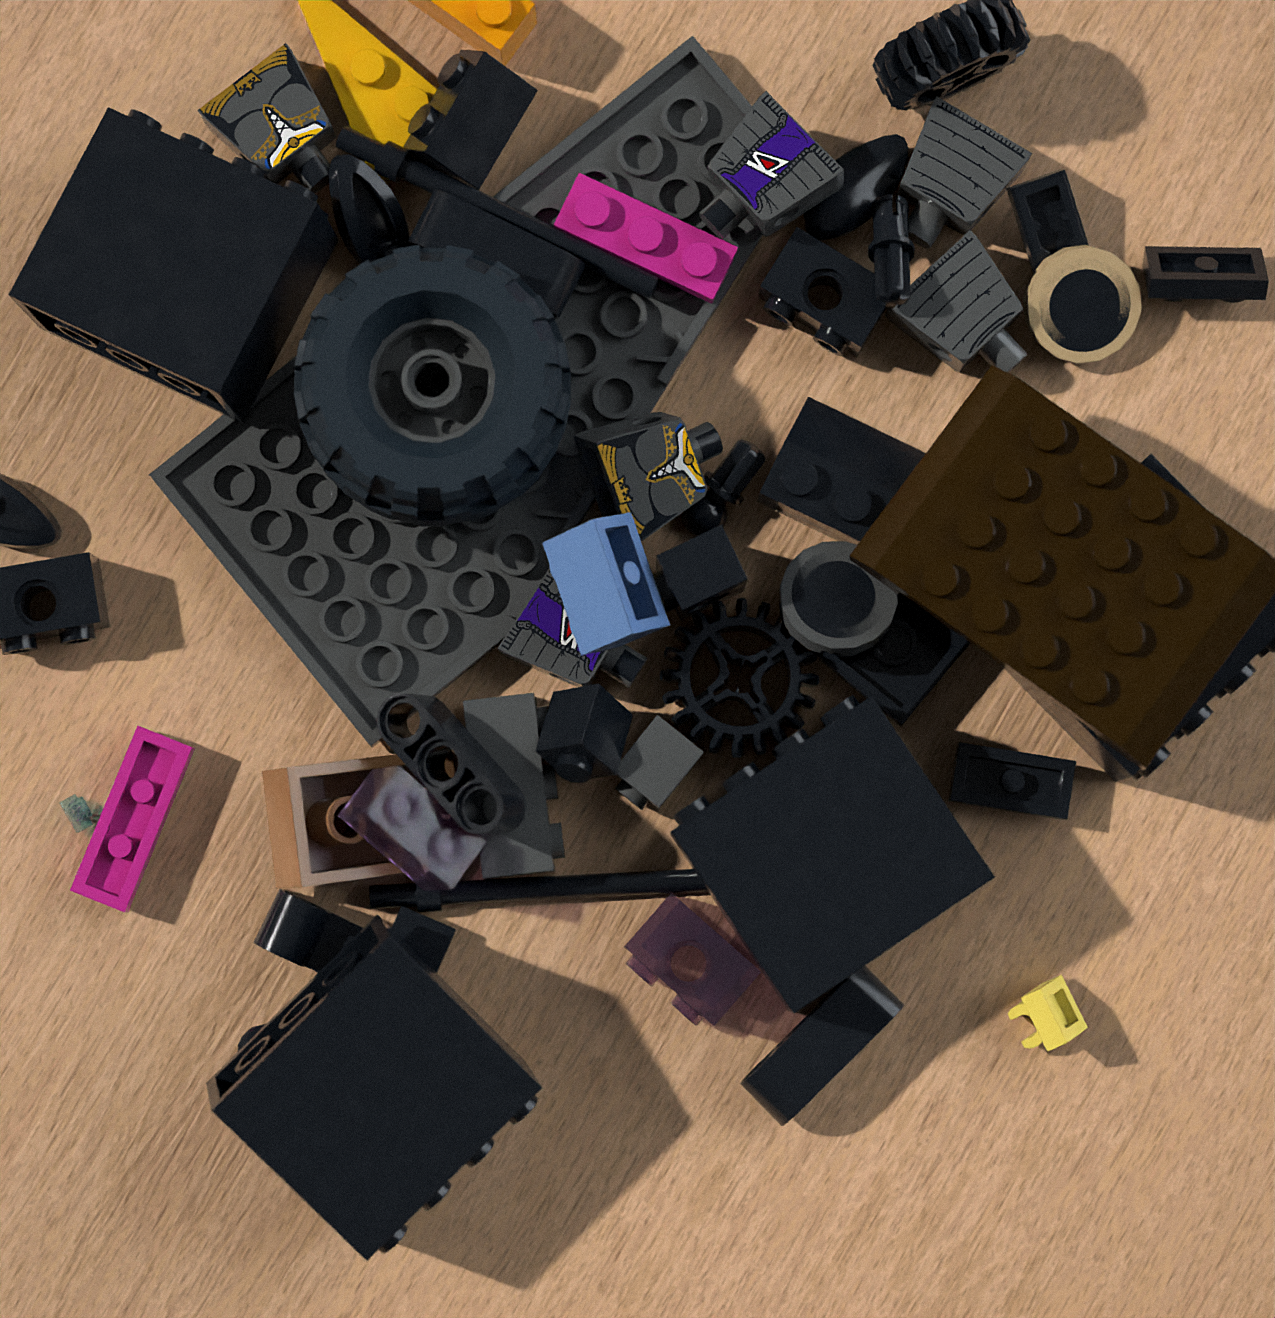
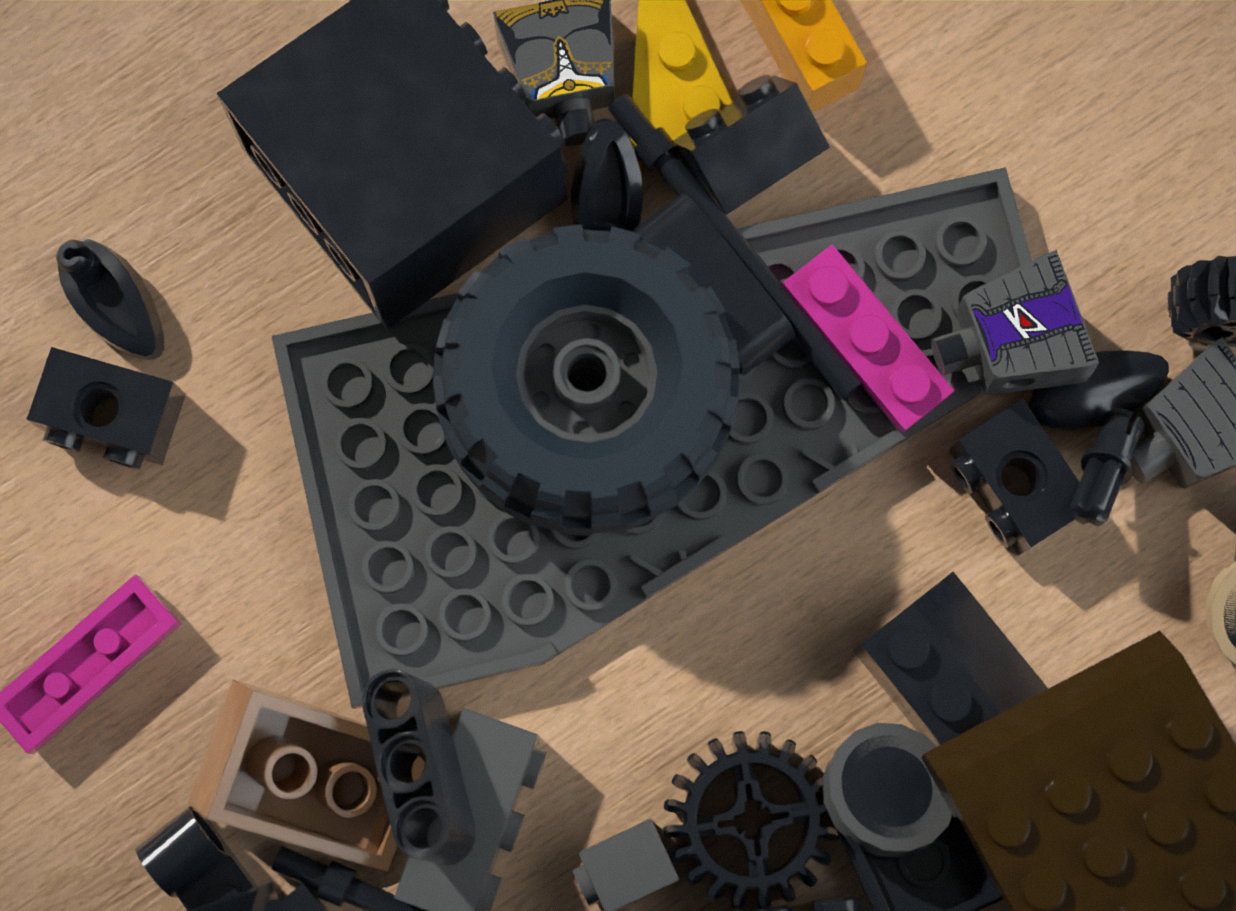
camera: 25 degrees right, 5 degrees down
(77, 812) = (36, 630): clear light blue piece -> none
(411, 829) = (346, 813): clear purple brick -> none
(545, 643) = (607, 690): torso -> none
(584, 733) = (568, 801): black brick -> none
(605, 583) = (662, 661): medium blue brick -> none
(647, 467) = (757, 567): dark grey torso -> none
(699, 573) = (760, 695): black brick -> none
(724, 486) = (797, 635): black axle -> none
(962, 309) = (1149, 559): dark grey torso -> none

